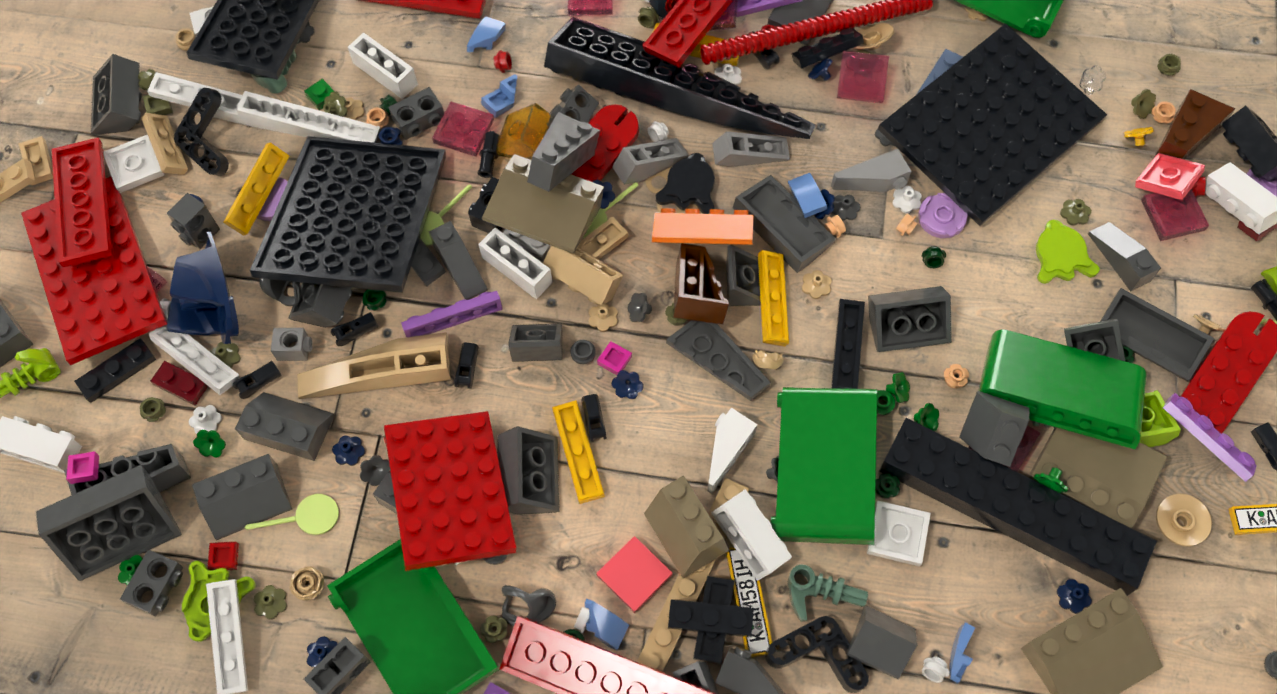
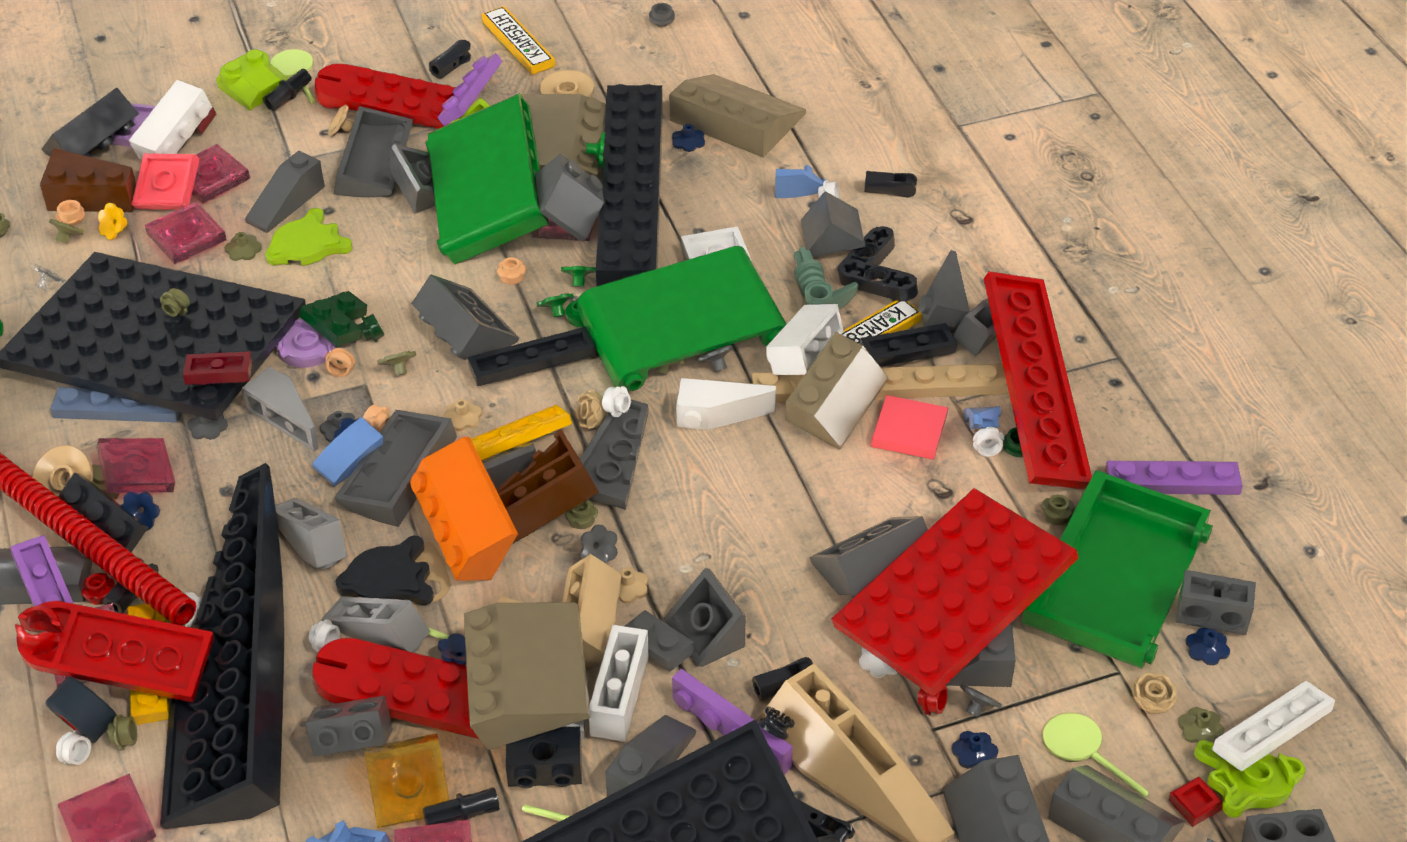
camera: 120 degrees left, 20 degrees down
(429, 333) = (775, 723): none -> black bush
(540, 603) = (1002, 477): dark grey piece -> none
(542, 308) = (664, 643): none -> dark grey plate
(562, 151) = (445, 660): dark grey wedge -> none
(578, 452) = (812, 531): yellow tile -> none
(582, 352) = (686, 574): dark grey plate -> none
(593, 415) = (763, 531): black bar -> none
(614, 358) = (679, 541): dark pink plate -> none
(627, 384) = (702, 515): dark blue plant -> none
(710, 618) = (912, 339): black plate -> none
(756, 369) = (616, 400): none -> white plate
(888, 258) = (397, 361): none -> olive plant
(907, 199) = (302, 377): white plant -> none
(913, 130) = (217, 368): none -> dark red plate
(957, 230) = (335, 317): none -> dark green plate
(1004, 131) = (175, 302): none -> olive plate
(1104, 175) = (185, 232): none -> clear pink plate

